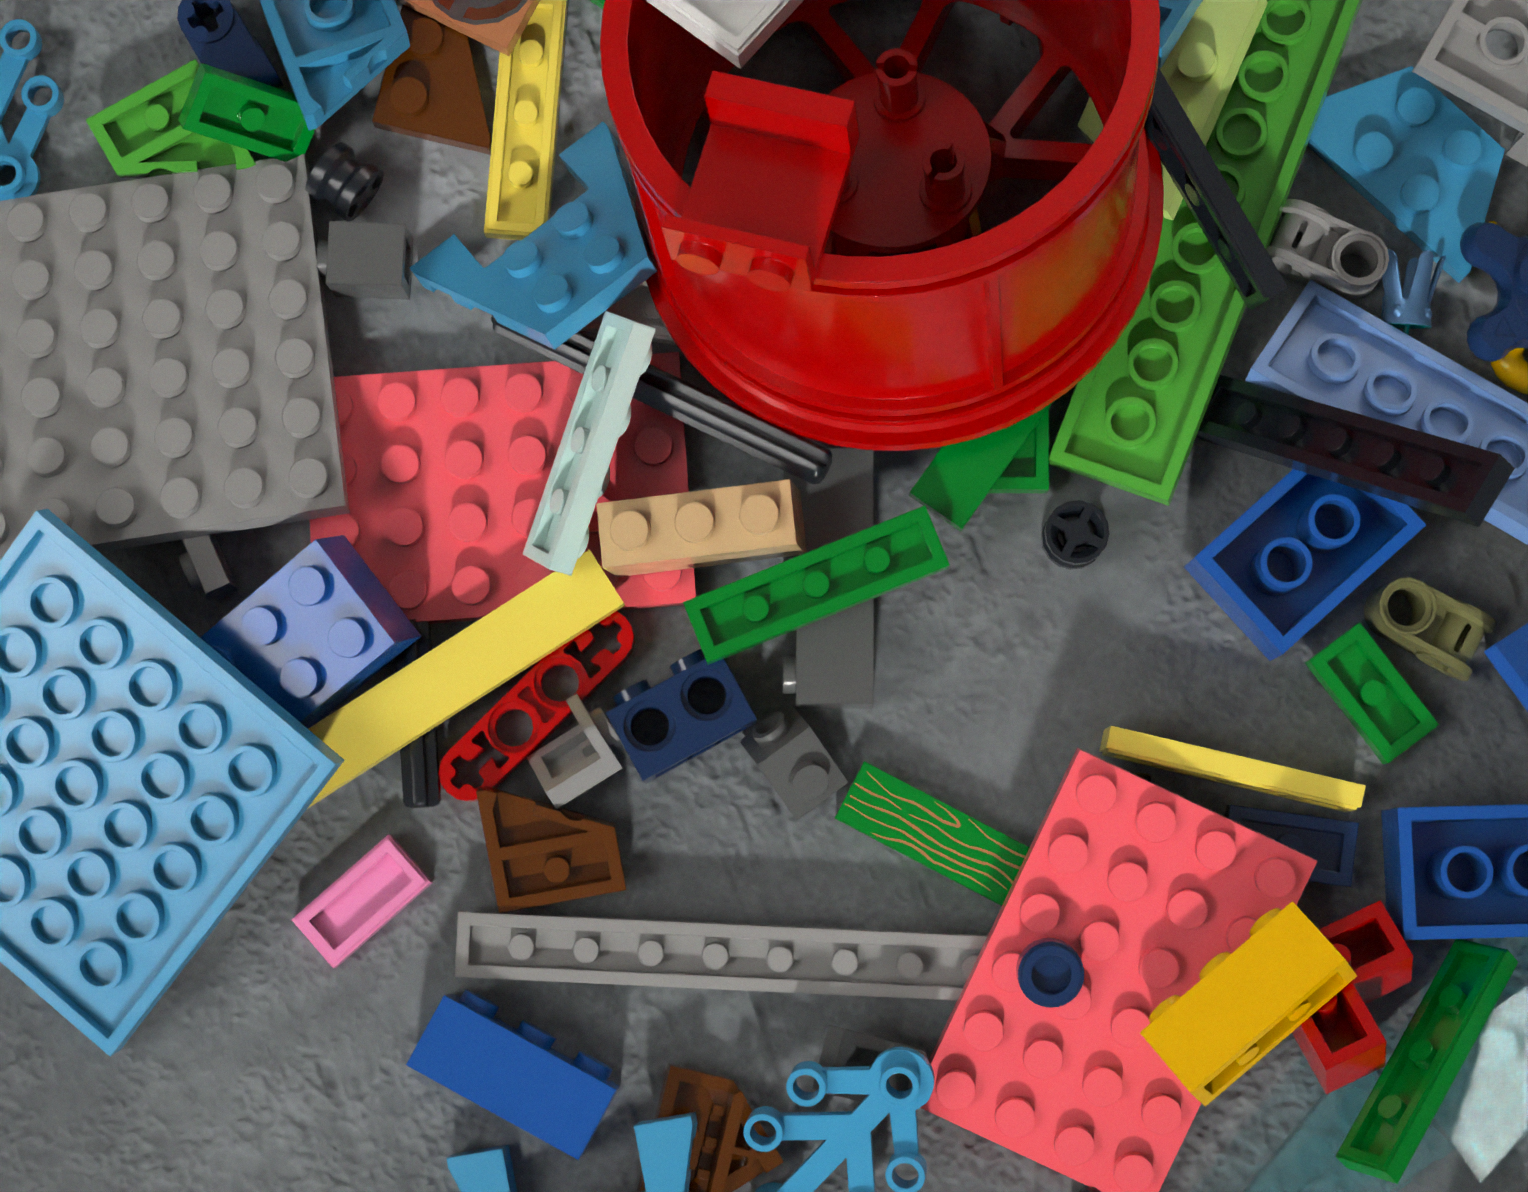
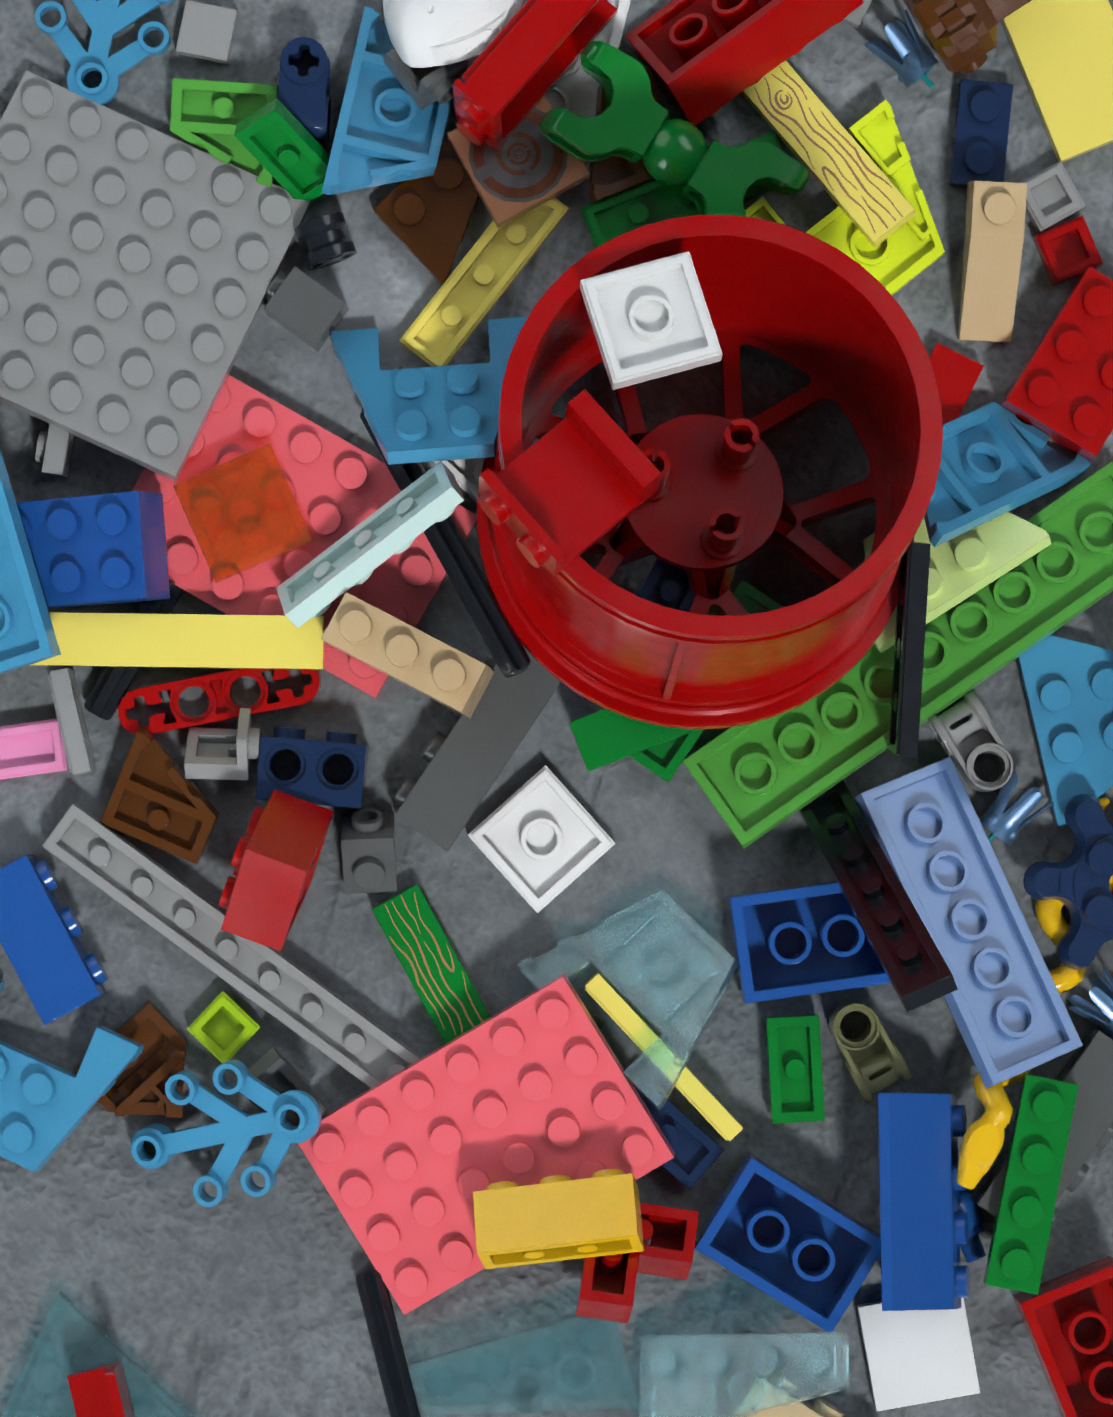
camera: 25 degrees right, 5 degrees up
(92, 58) = (207, 32): none -> light grey tile
(402, 829) = (72, 721): none -> light grey tile
(439, 501) = (243, 513): none -> clear orange plate
(709, 838) = (274, 869): none -> red brick
(764, 1040) = (224, 1027): none -> lime tile
(816, 585) = (459, 745): green plate -> none
(960, 636) = (541, 839): none -> white tile
(1050, 972) = (442, 1111): dark blue tile -> none
(1081, 524) = (676, 828): black wheel -> none
(1168, 679) = (661, 968): none -> clear light blue wing
(1426, 1060) = (658, 1337): green tile -> none

